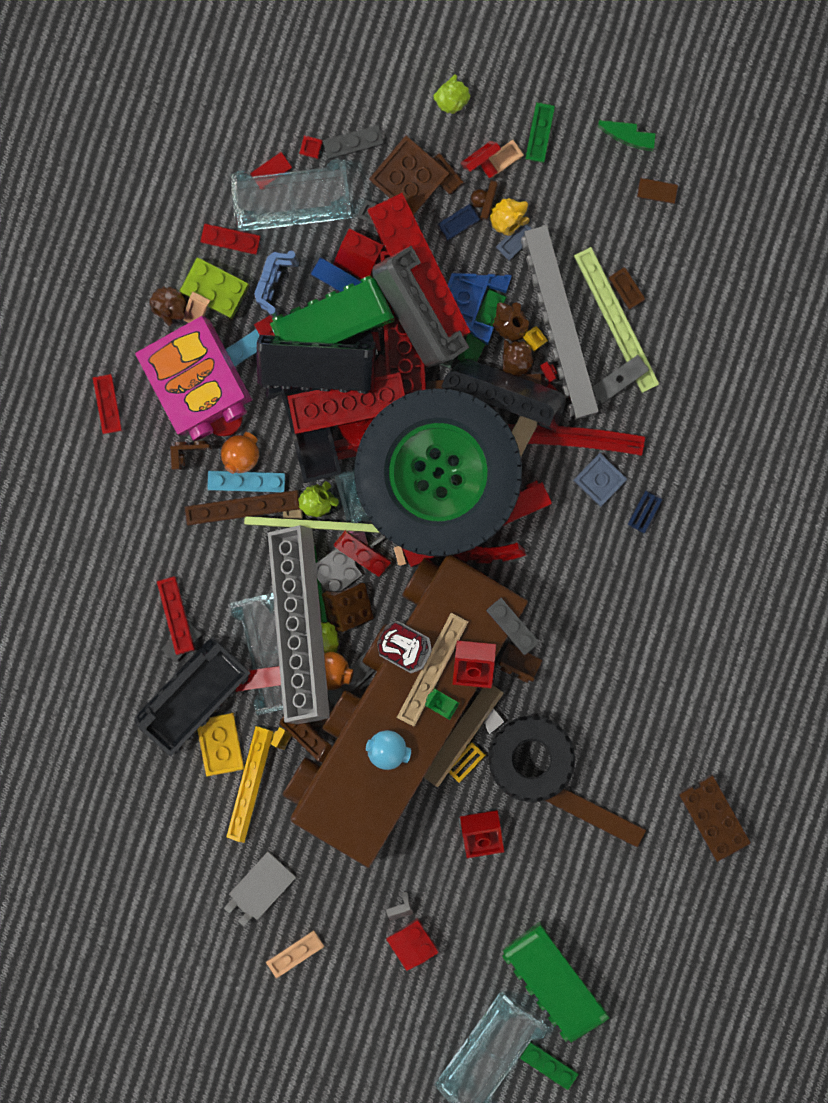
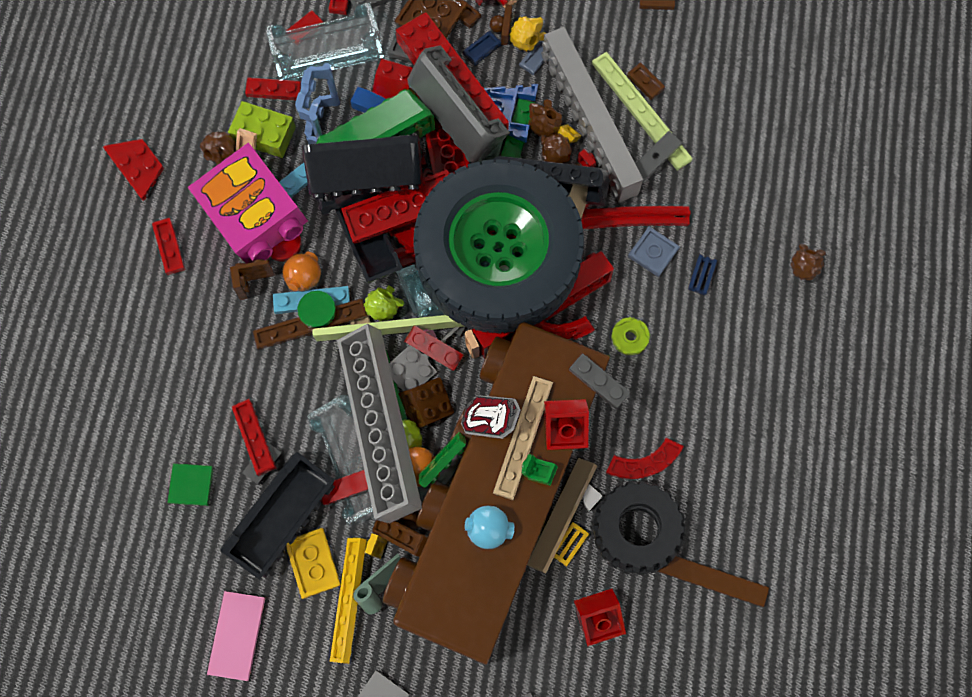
camera: 15 degrees left, 15 degrees down
(80, 306) = (136, 164): none -> red wing
(110, 652) = (190, 484): none -> green tile
(142, 801) = (236, 636): none -> bright pink tile
(250, 496) = (316, 309): none -> green tile
(268, 782) = (367, 593): none -> sand green door
(354, 675) = (442, 460): none -> green plate
(515, 661) = (608, 435): reddish brown bracket -> none
(552, 698) = (646, 466): none -> red tile
(555, 555) = (626, 346): none -> lime tile
(714, 818) = (837, 563): reddish brown piece -> none
(751, 518) = (807, 262): none -> reddish brown animal

